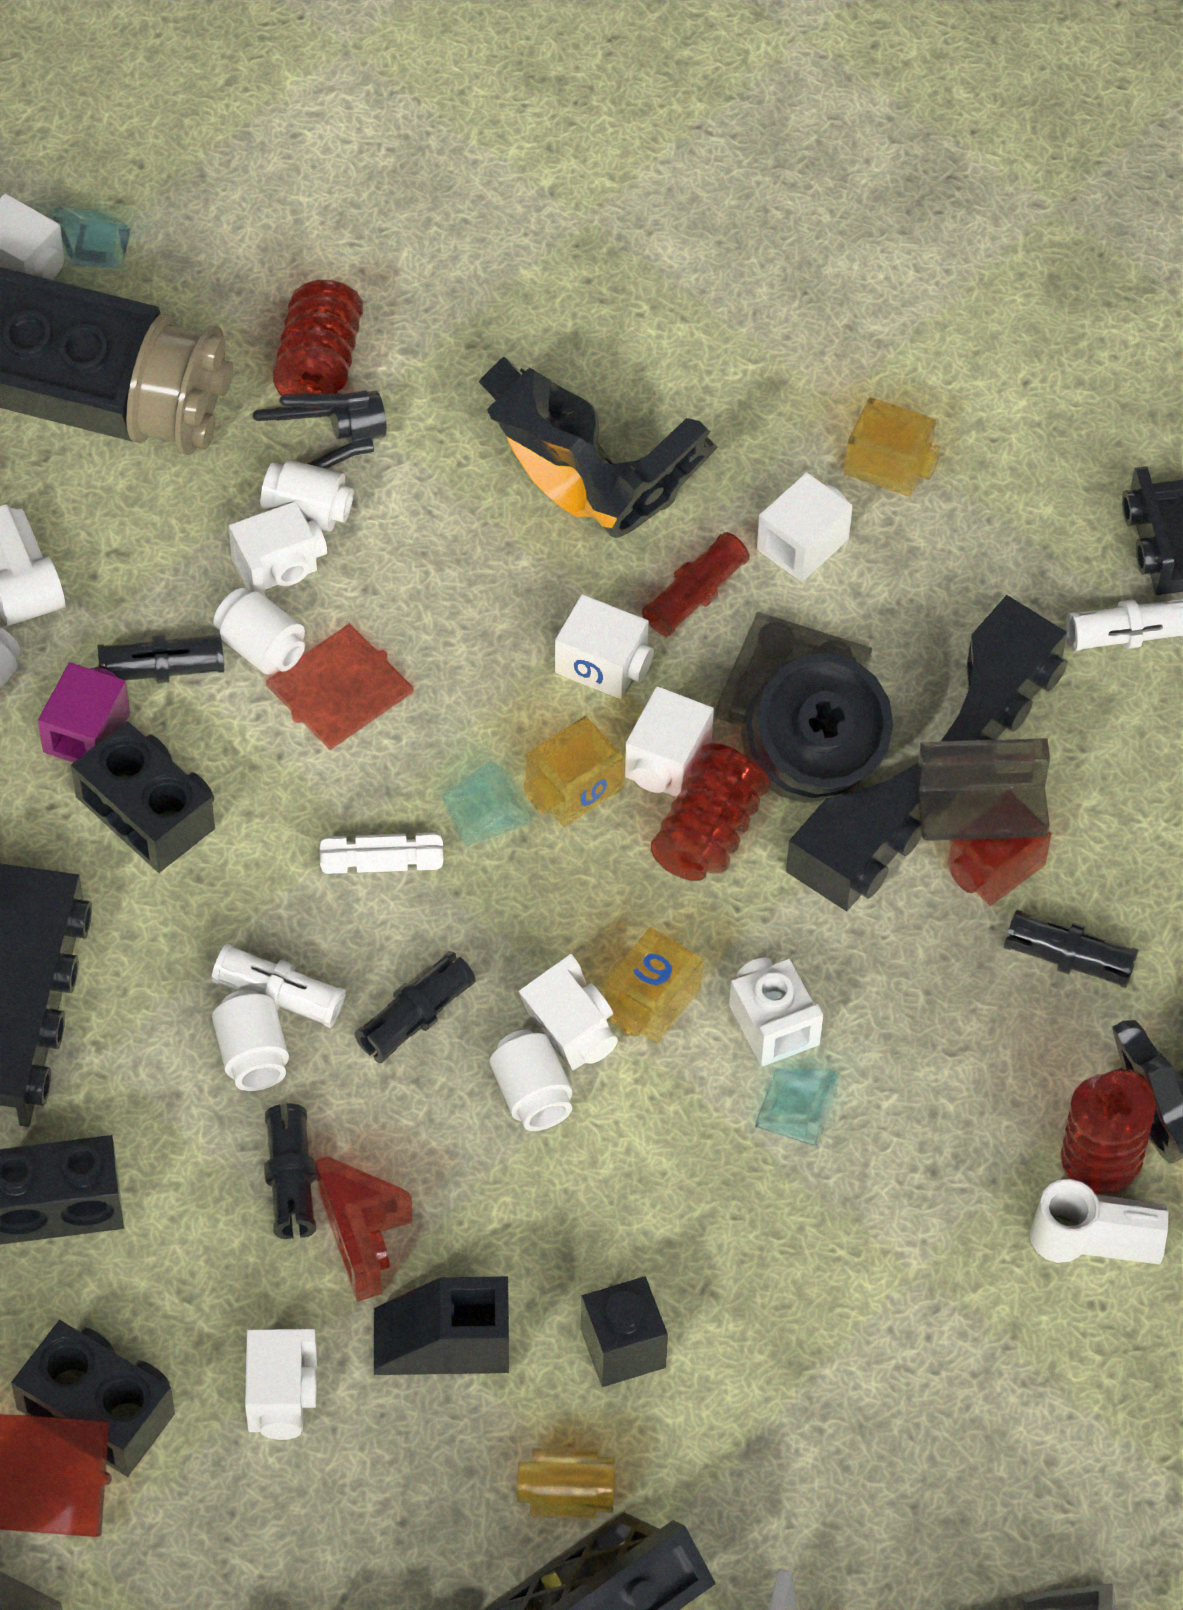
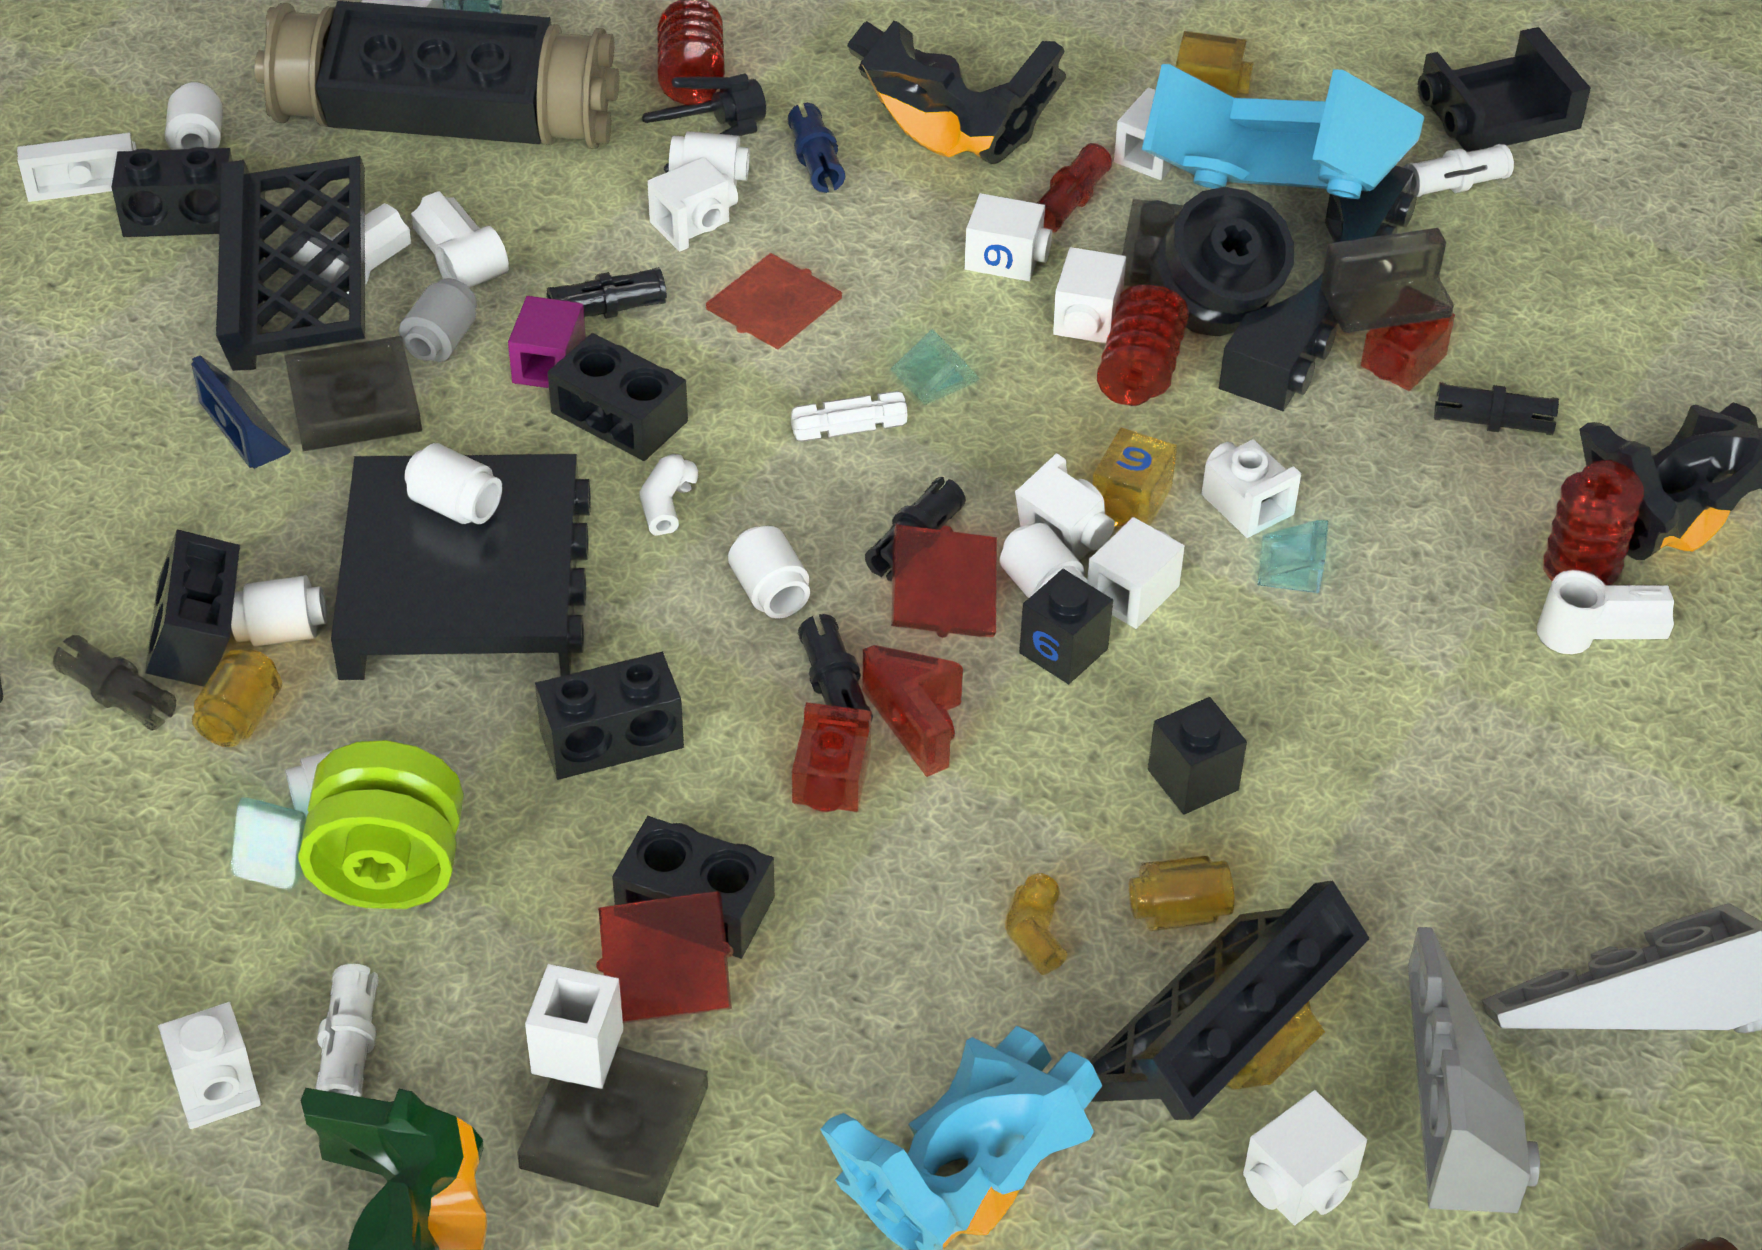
camera: 10 degrees left, 10 degrees down
(174, 903) = (656, 494): none -> white arm
(260, 631) = (693, 262): white brick -> none
(265, 1298) = (831, 758): none -> clear red brick
(280, 1380) = (874, 844): white brick -> none
(281, 983) = (801, 529): white pin -> none
(413, 1486) = (1029, 921): none -> clear yellow arm
(426, 1079) = (944, 581): none -> clear red piece
(429, 490) = (816, 147): none -> dark blue pin
(445, 1328) = (1027, 775): black slope -> none
(533, 1157) = (1065, 626): none -> black brick
(573, 772) = (1009, 329): clear yellow brick -> none
(624, 1099) = (1137, 570): none -> white brick
(962, 584) = (1294, 143): none -> medium azure windscreen

